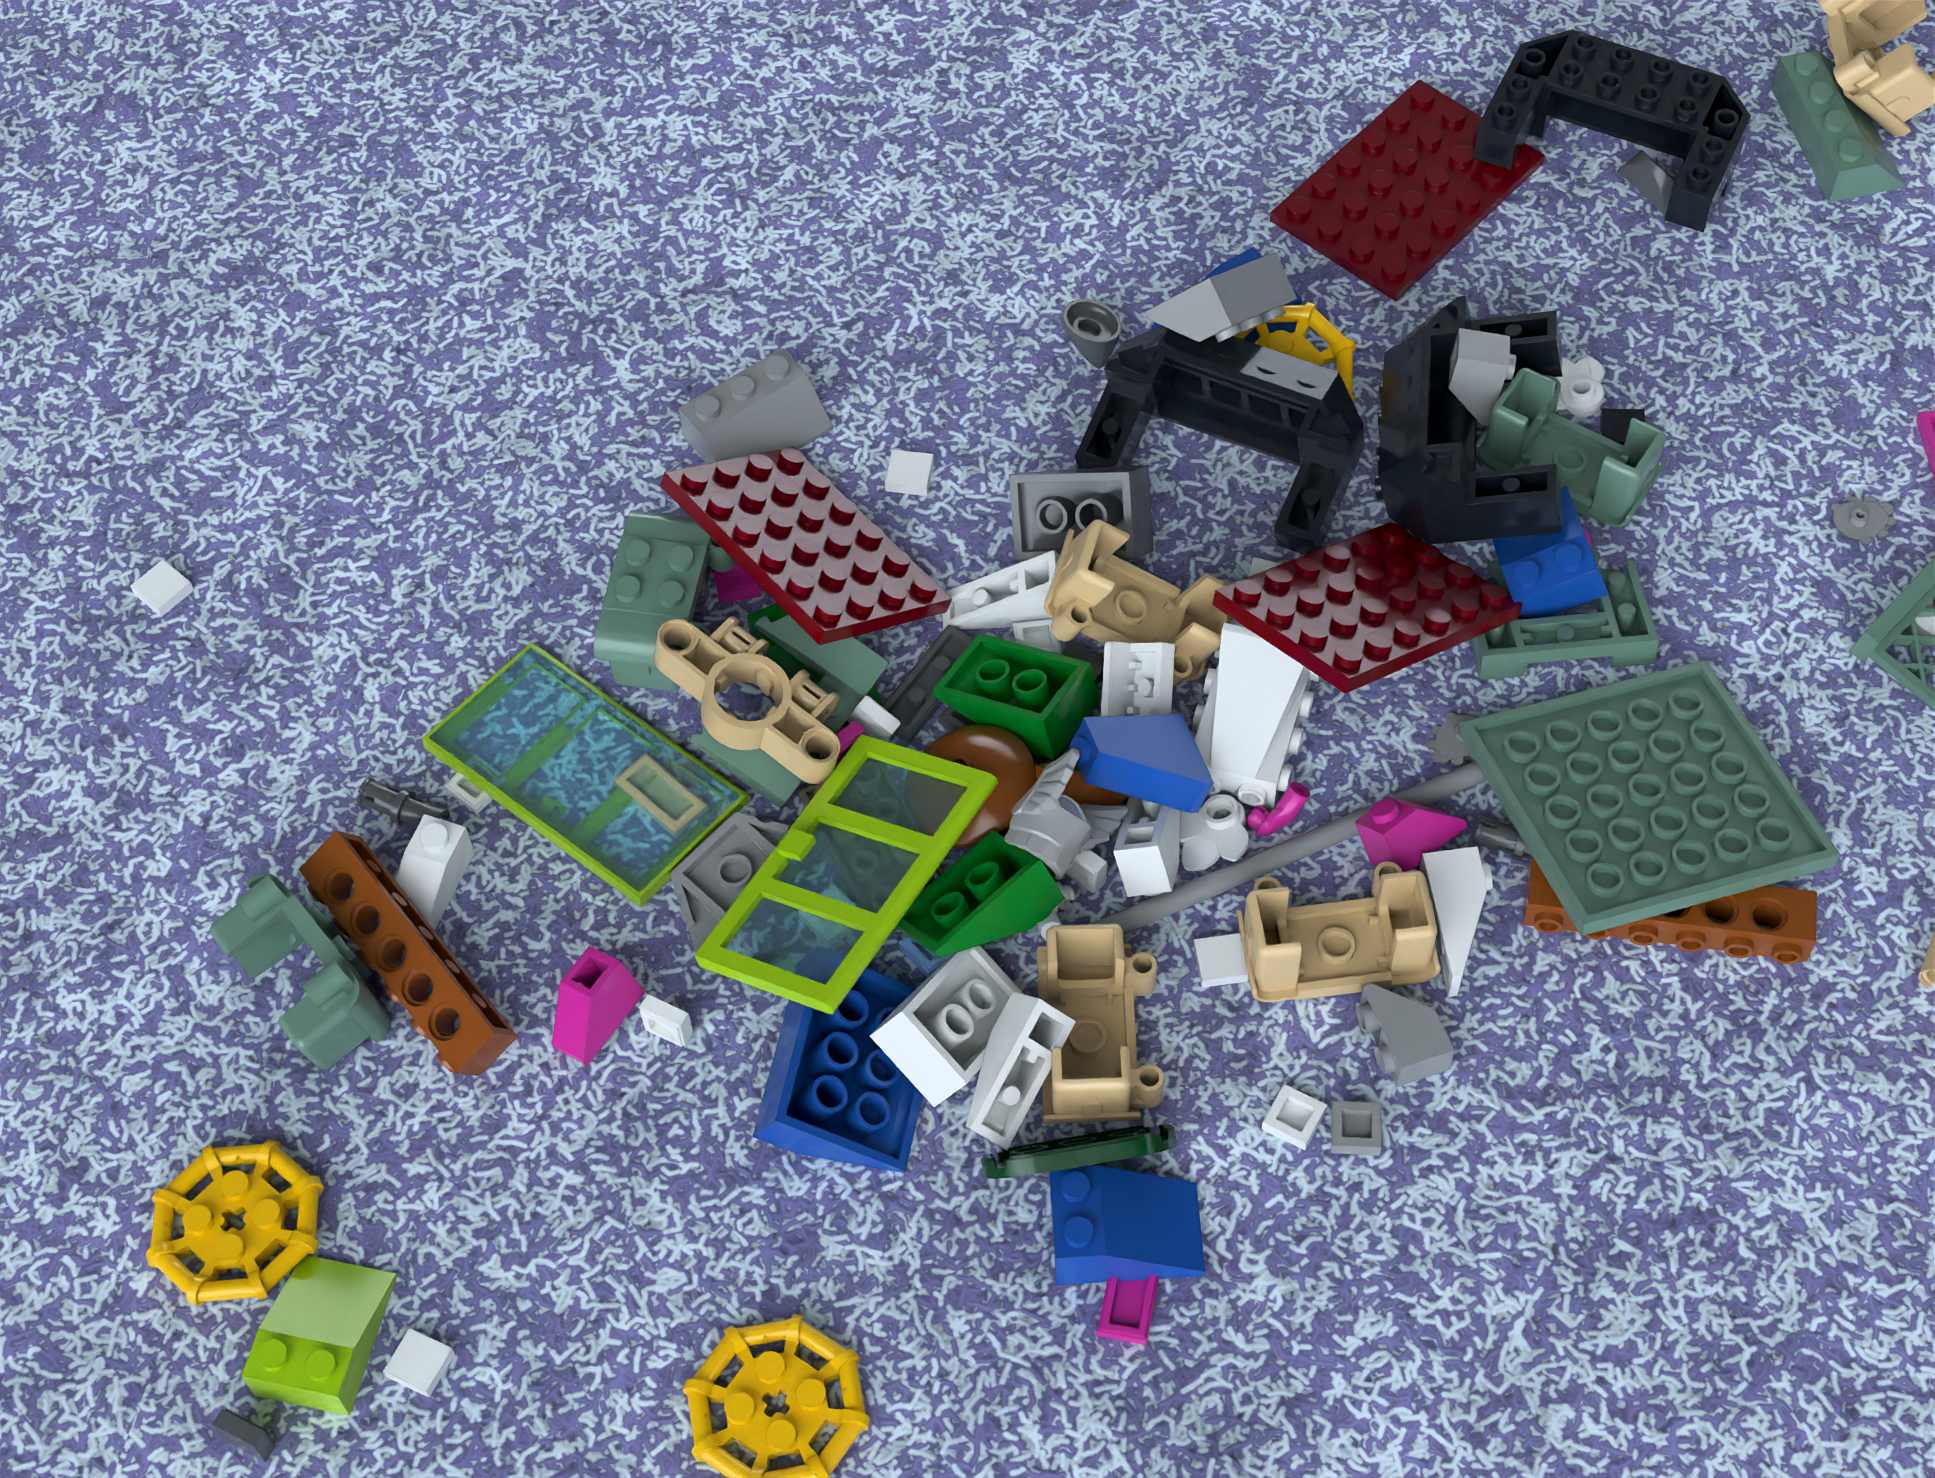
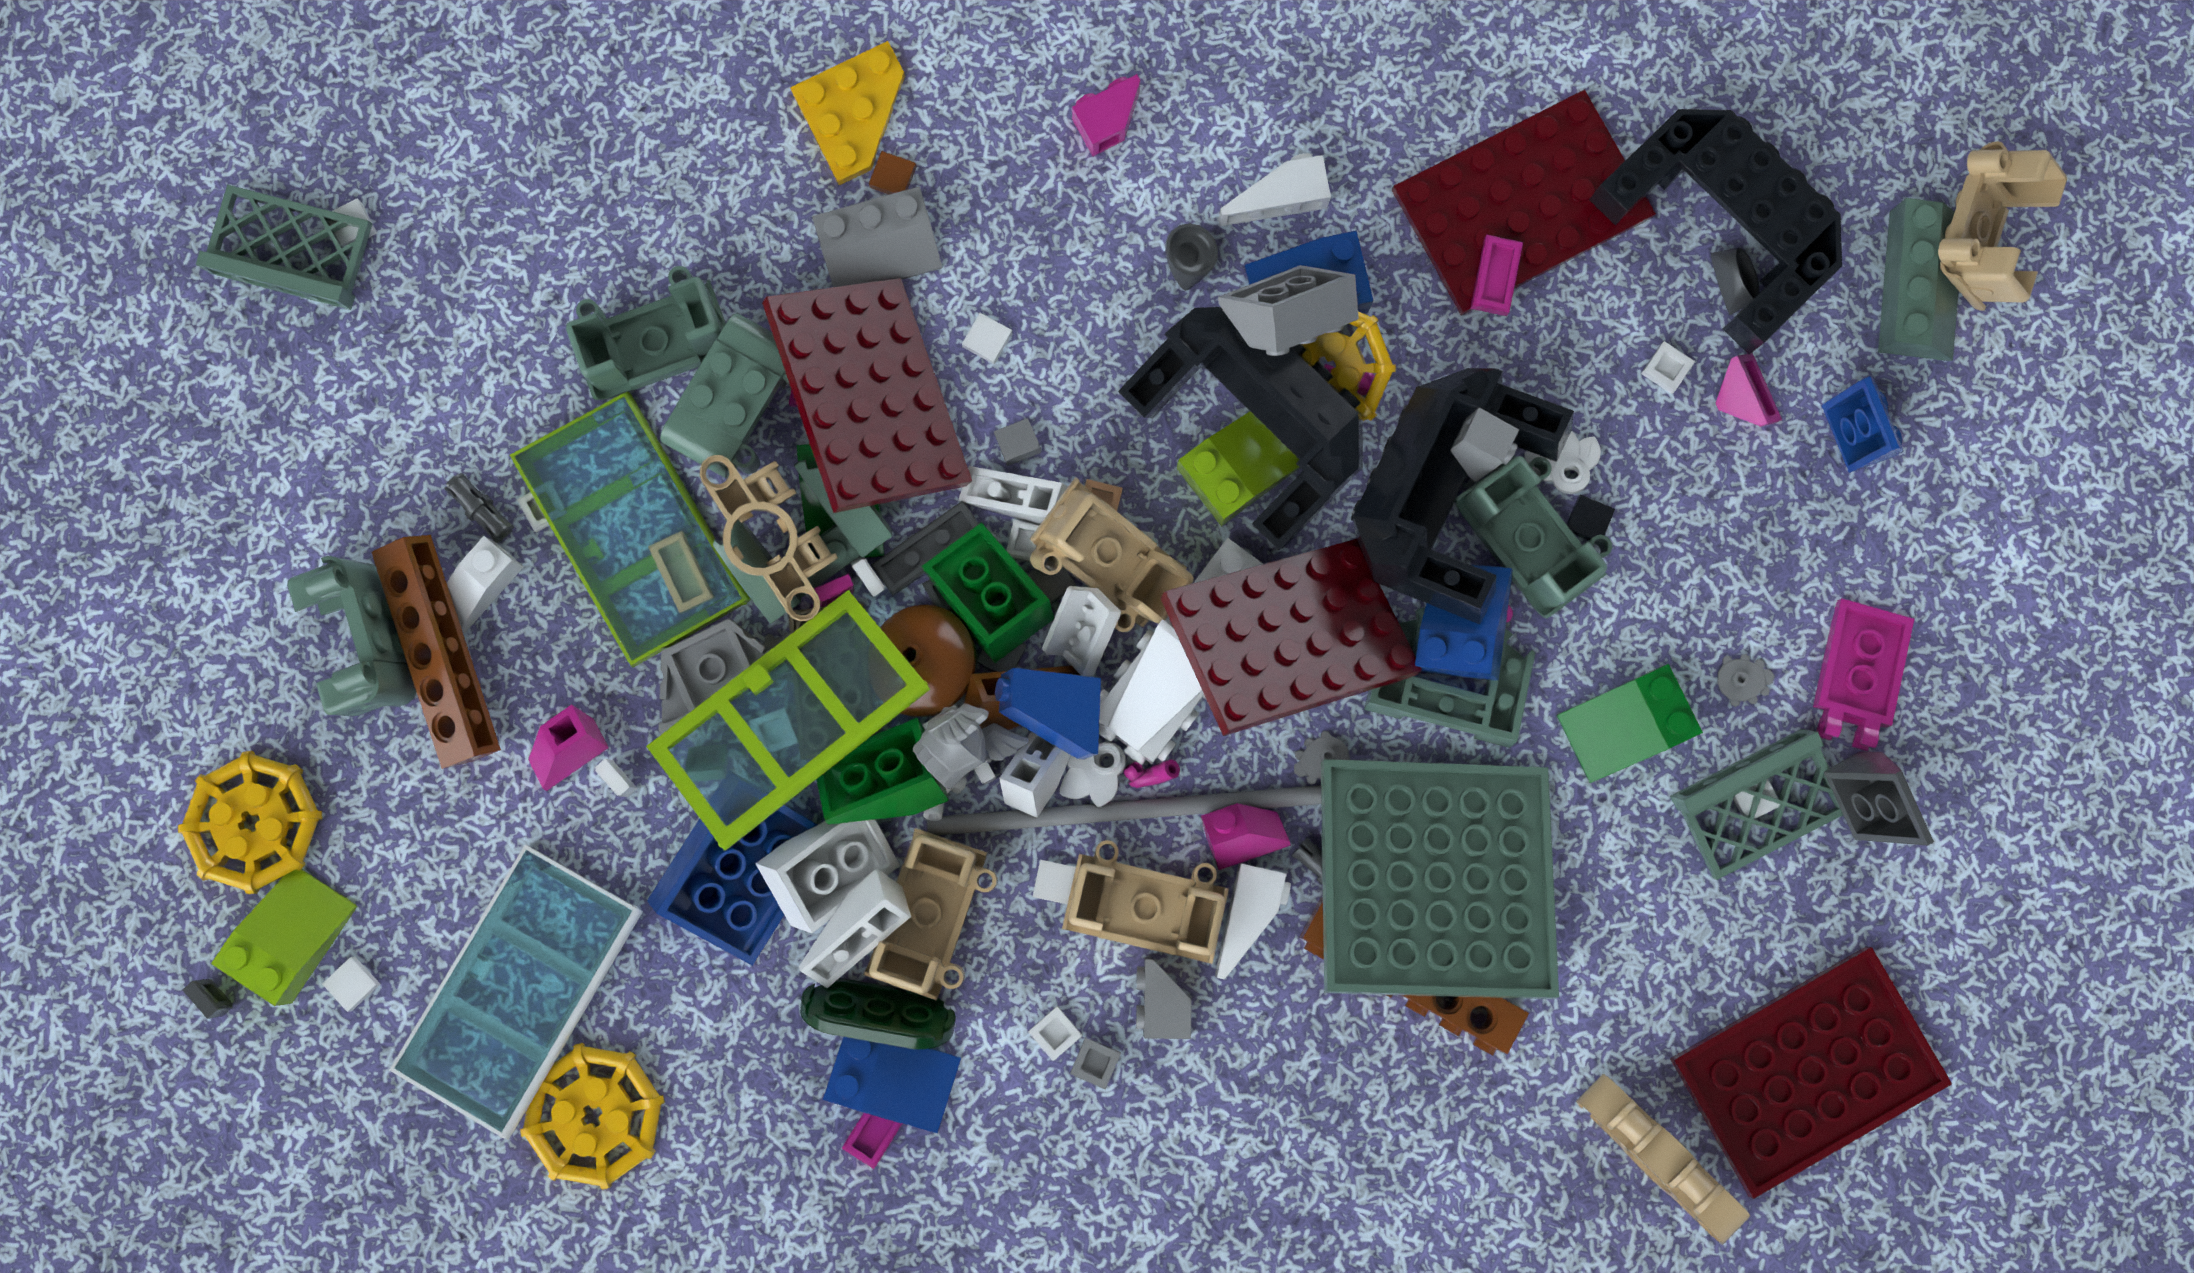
camera: 15 degrees right, 25 degrees up
(96, 655) = (269, 273): none -> sand green fence
(545, 582) = (646, 341): none -> sand green container
(630, 1294) = (516, 992): none -> clear light blue door
(676, 321) = (851, 108): none -> yellow plate
(741, 356) = (892, 174): none -> dark orange tile
(947, 242) = (1107, 115): none -> dark pink slope
(986, 554) = (1017, 442): none -> light grey slope
(1060, 500) = (1106, 446): dark grey slope -> none
(1163, 247) = (1289, 189): none -> white slope
(1229, 498) = (1236, 467): none -> lime slope
(1414, 246) = (1496, 275): none -> dark pink tile
(1628, 277) = (1668, 367): none -> white tile
(1717, 274) = (1746, 393): none -> dark pink slope
(1769, 590) = (1629, 723): none -> green slope
(1852, 246) = (1863, 425): none -> blue slope

